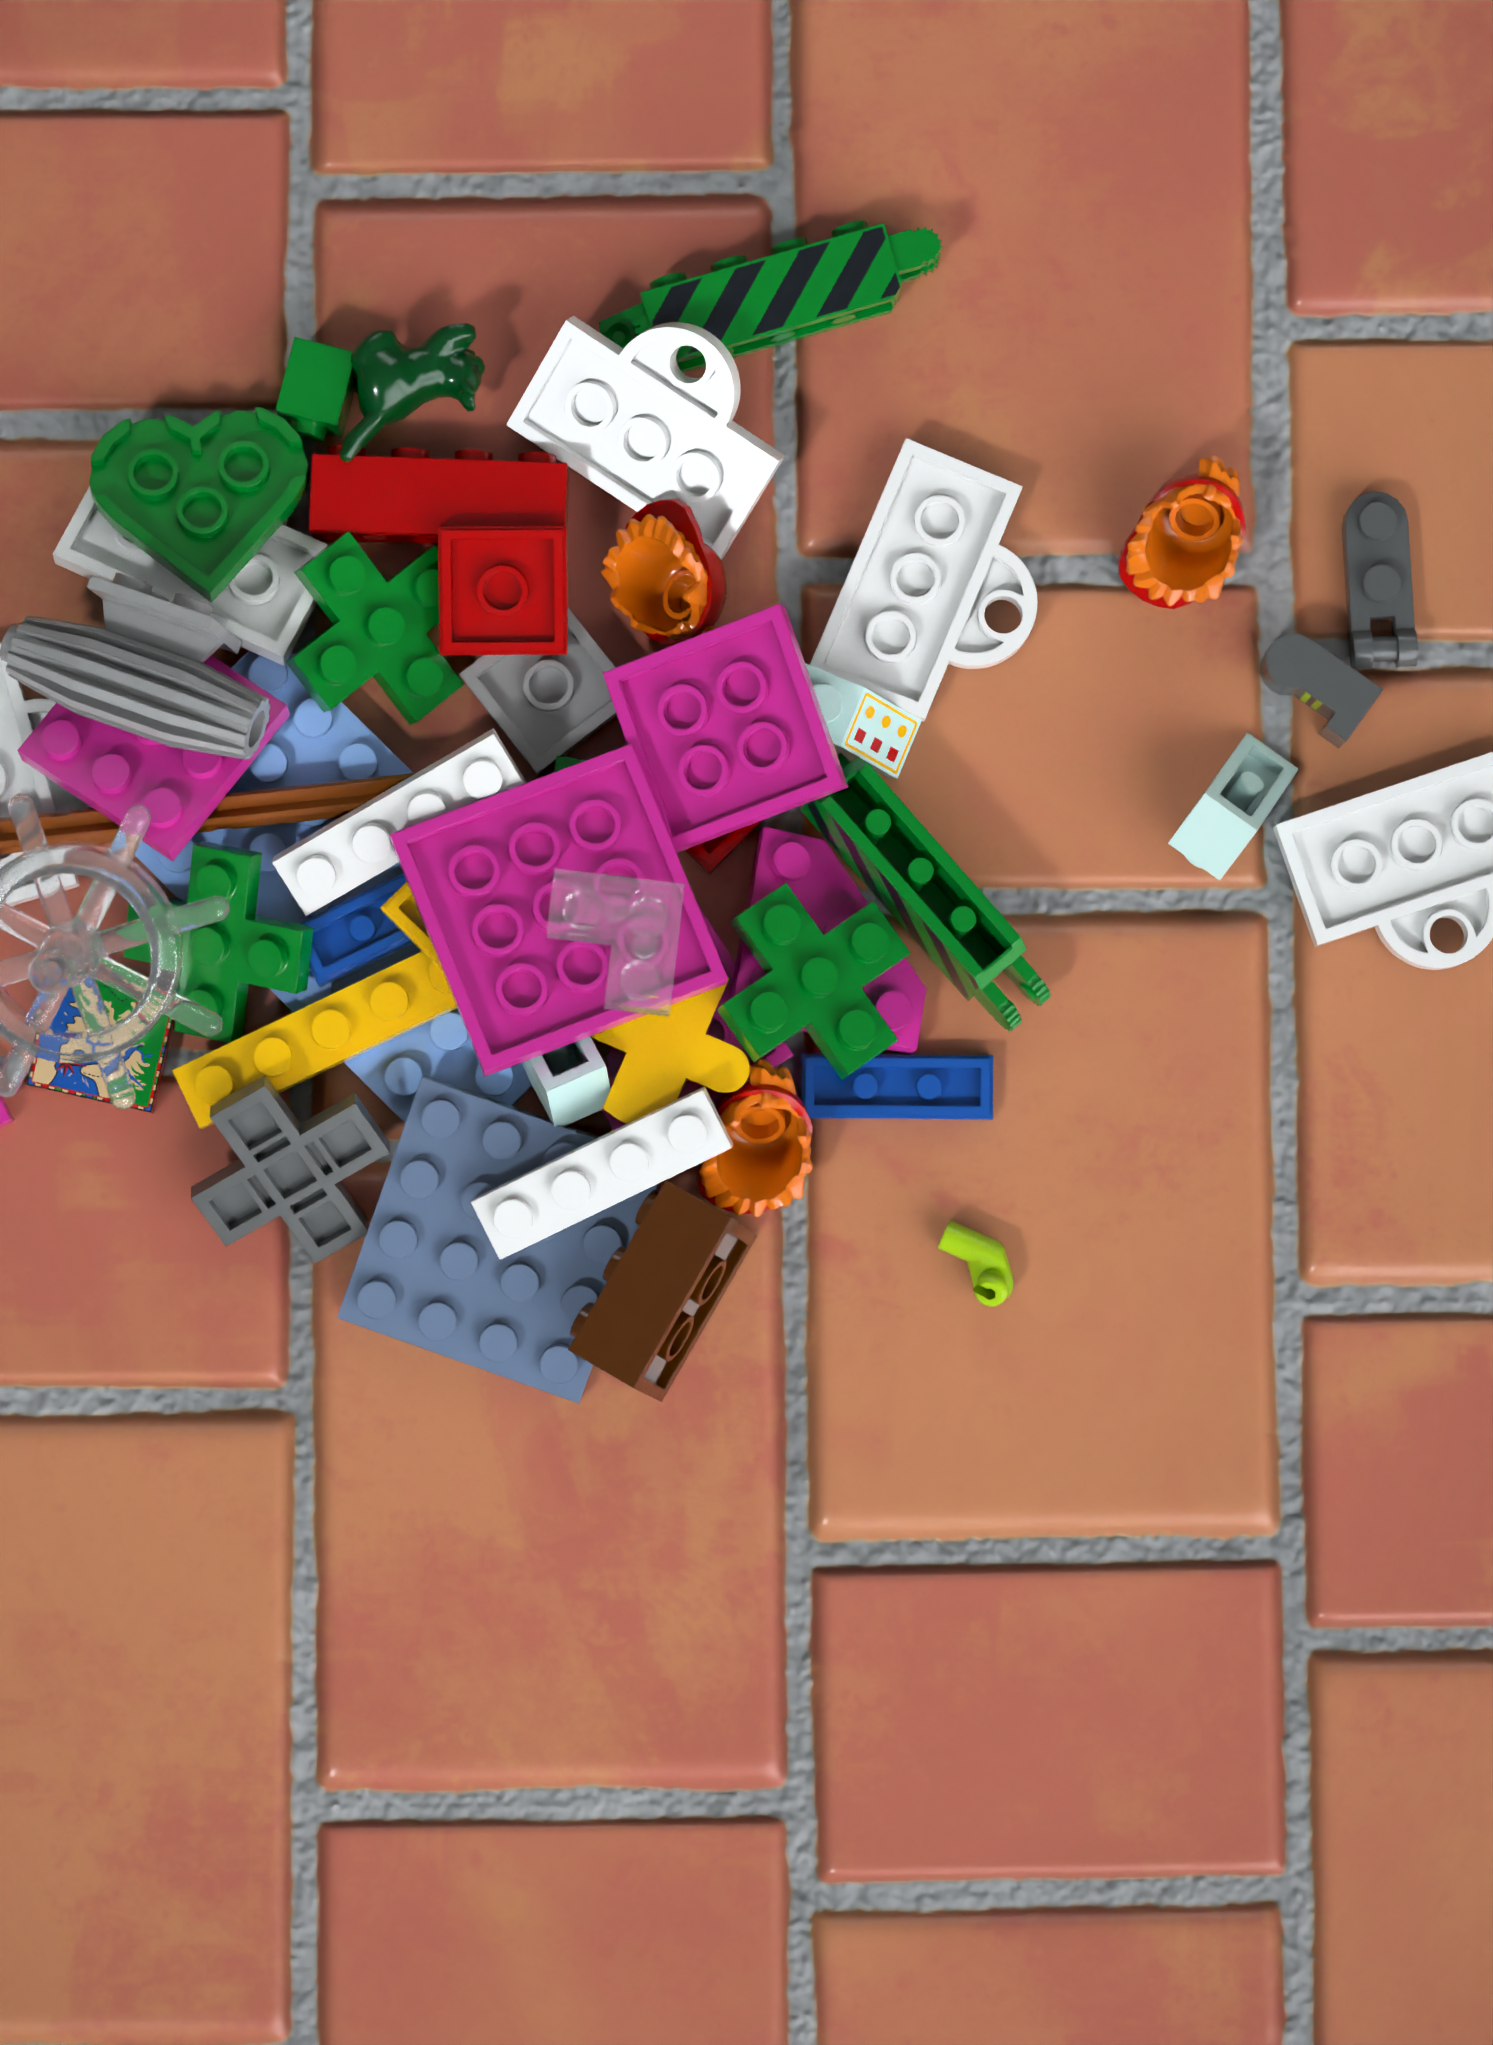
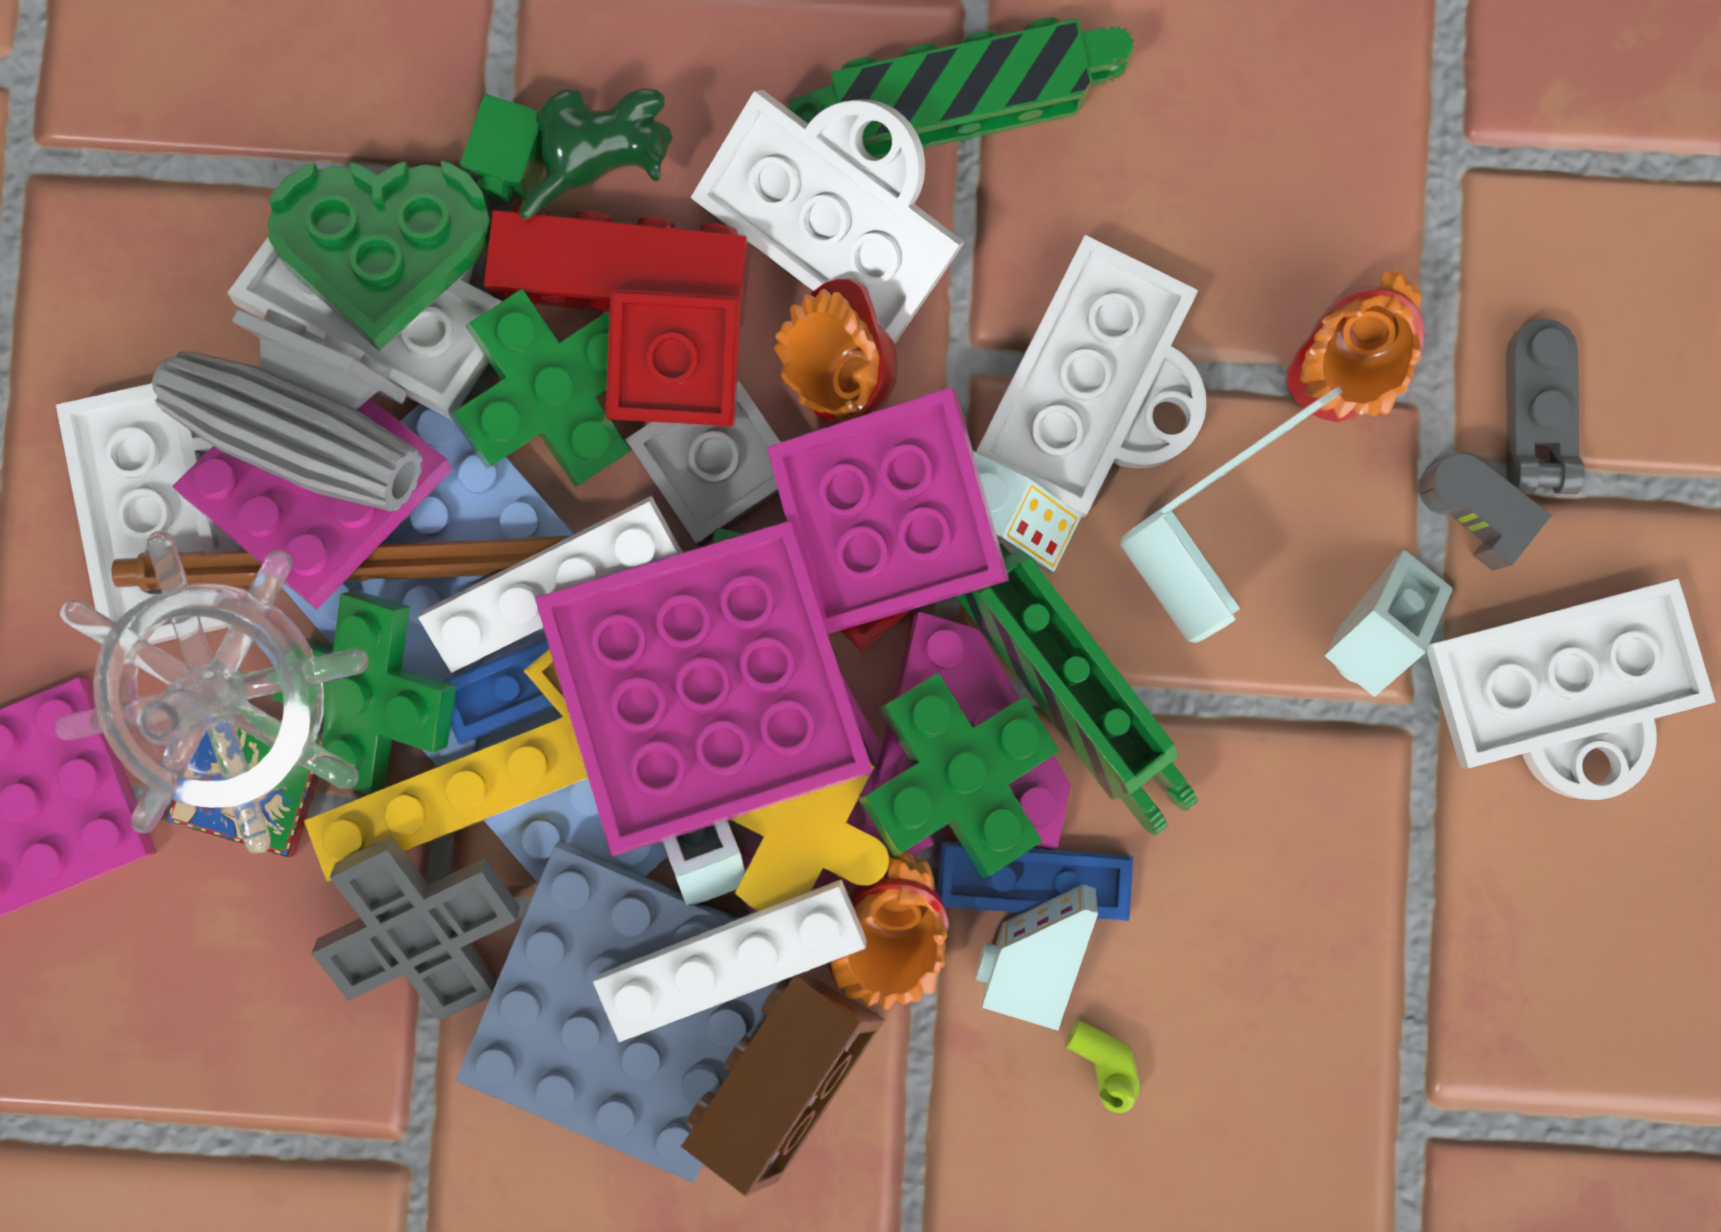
camera: 10 degrees right, 0 degrees up
(638, 922) = (783, 708): clear plate -> none
(902, 1158) = (1038, 958): none -> light aqua slope
(1013, 757) = (1176, 566): none -> light aqua piece

